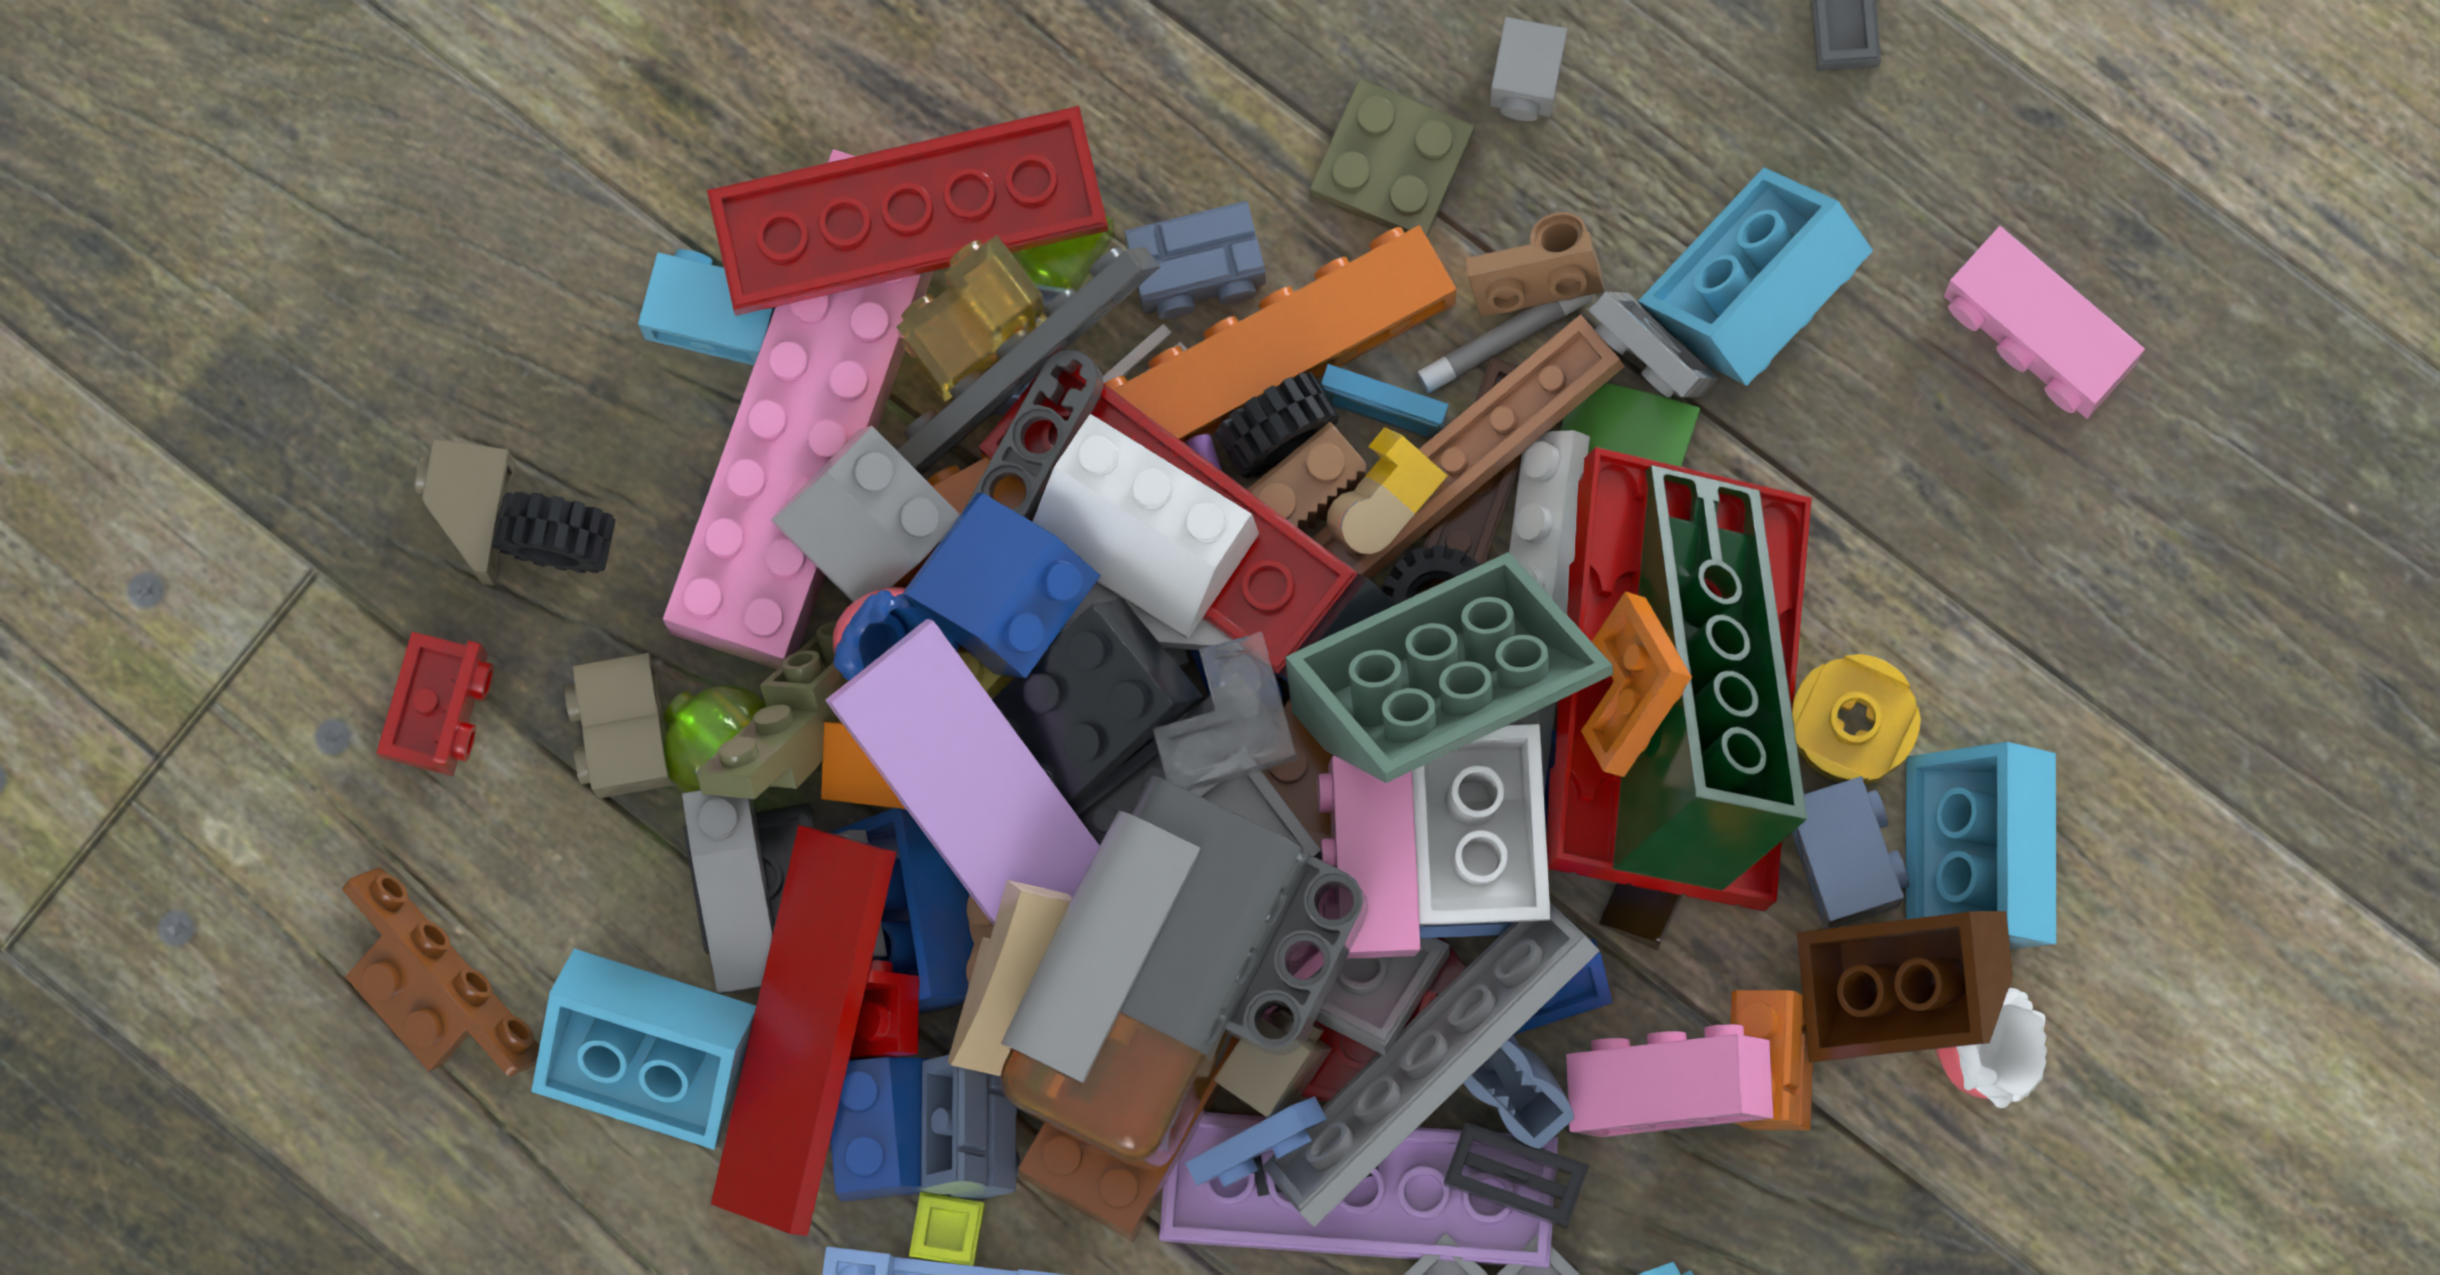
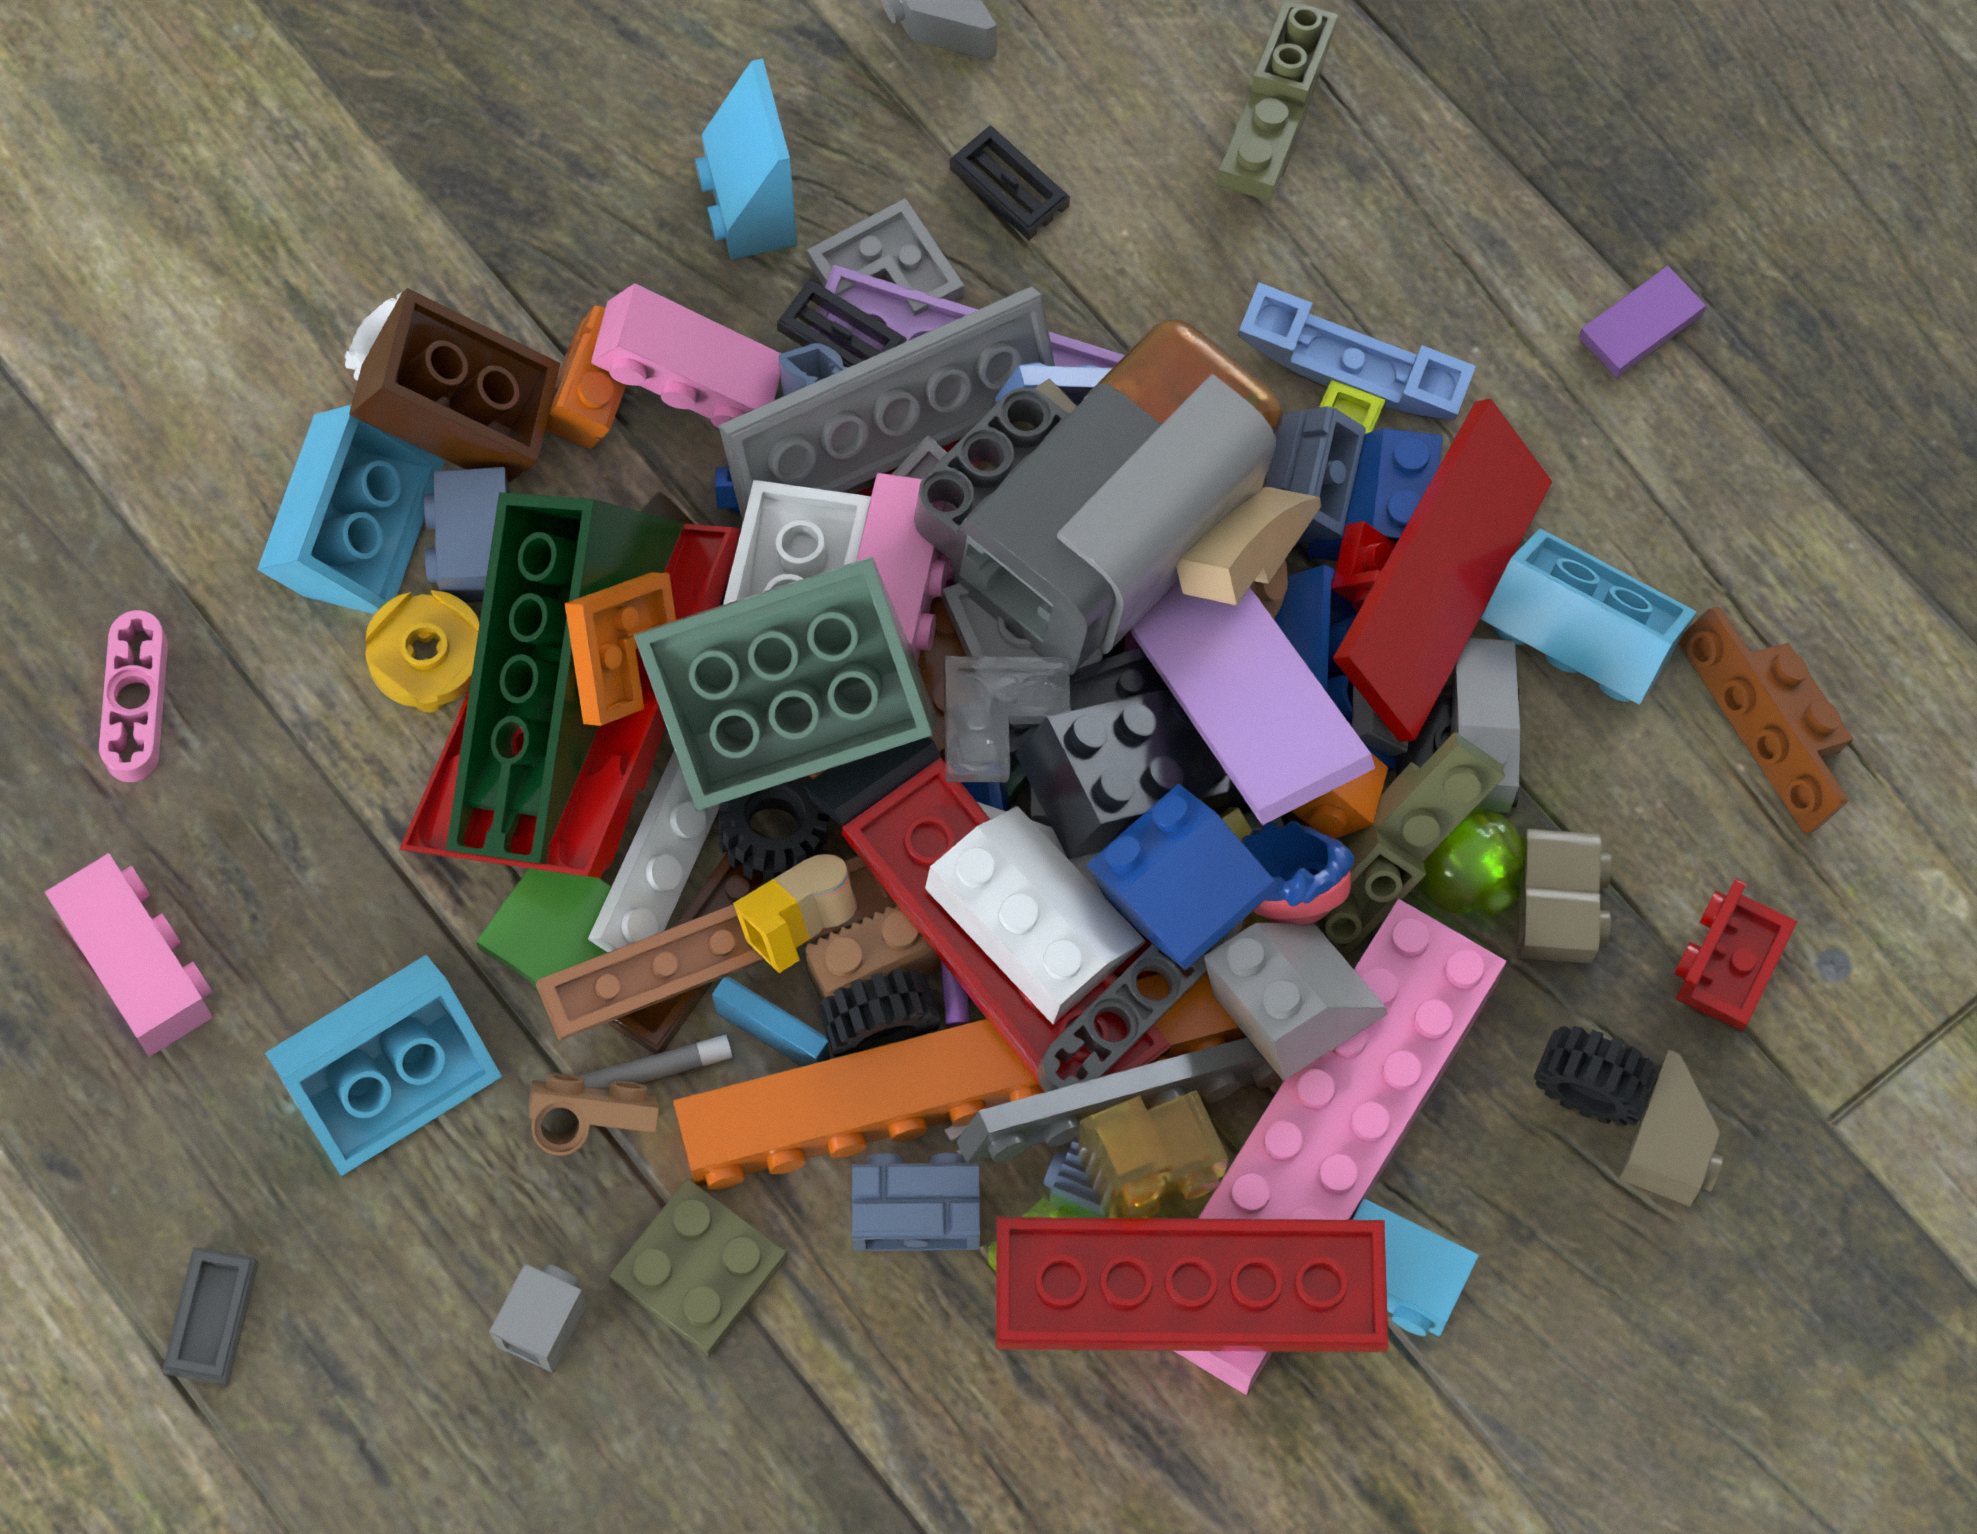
camera: 170 degrees left, 10 degrees down
(1669, 362) = (502, 1001): light grey plate -> none
(2112, 559) = (121, 672): none -> bright pink beam

